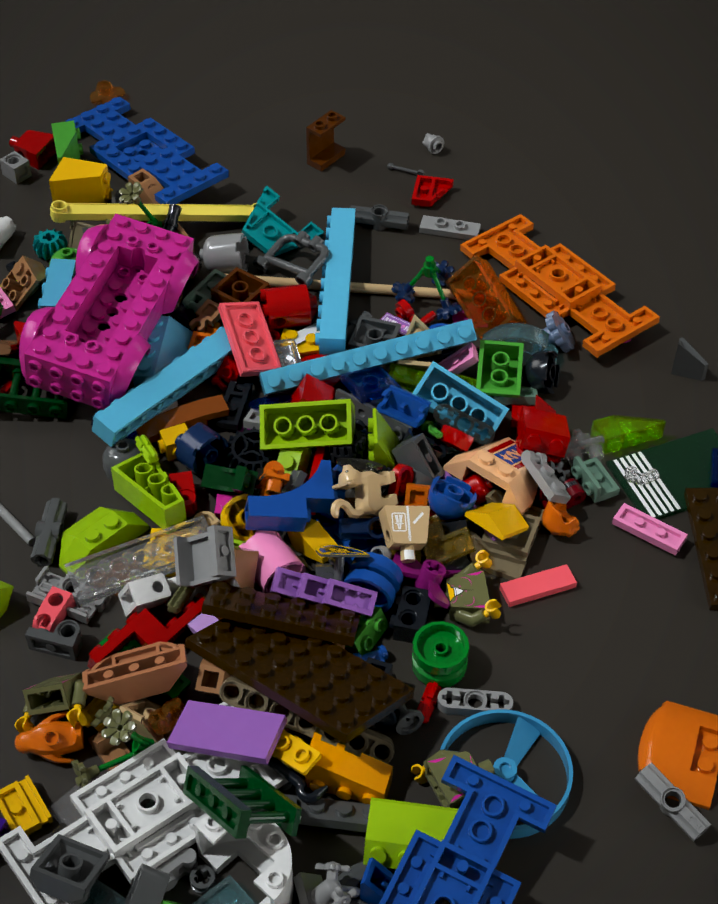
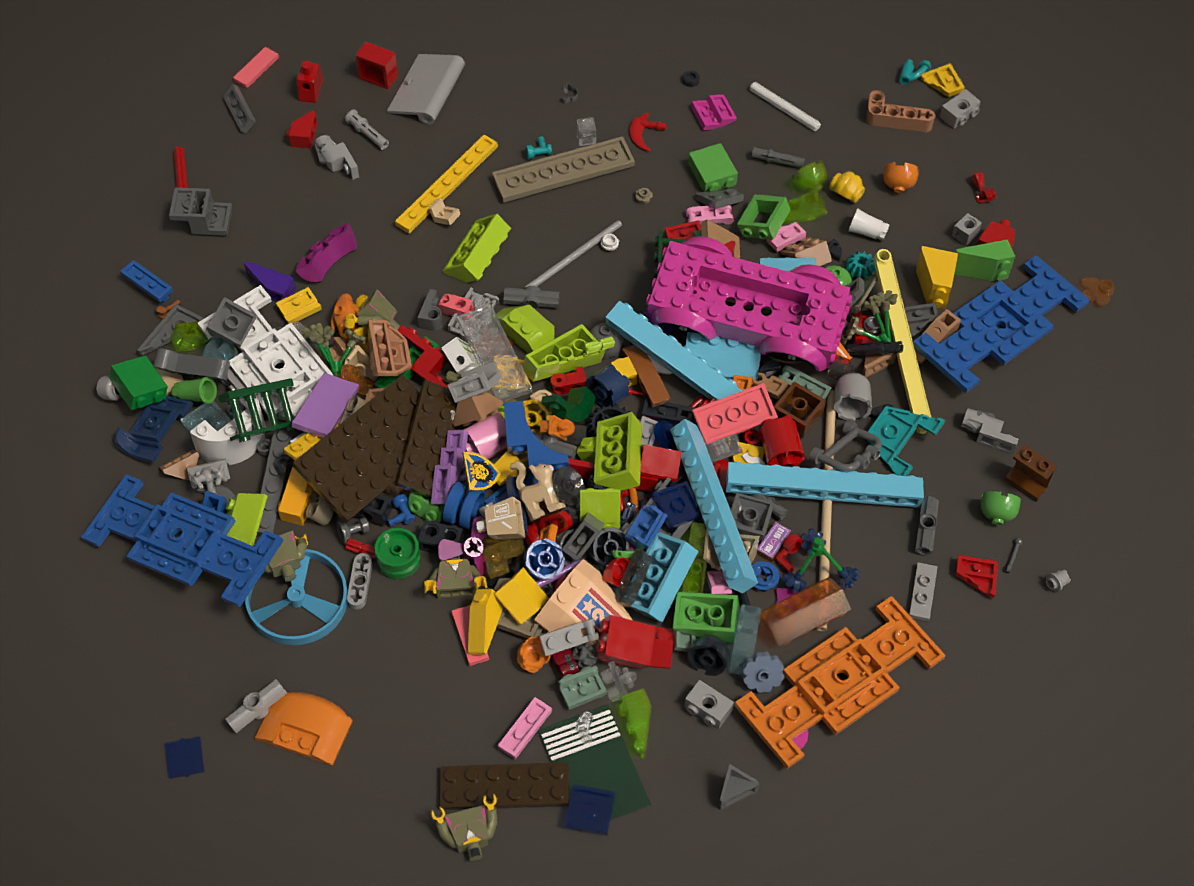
camera: 90 degrees right, 10 degrees up
(268, 171) = (989, 430): none -> light grey plate
(360, 167) = (1000, 507): none -> bright green cylinder
(531, 560) = (483, 620): none -> yellow slope
(597, 378) = (704, 694): none -> light grey brick

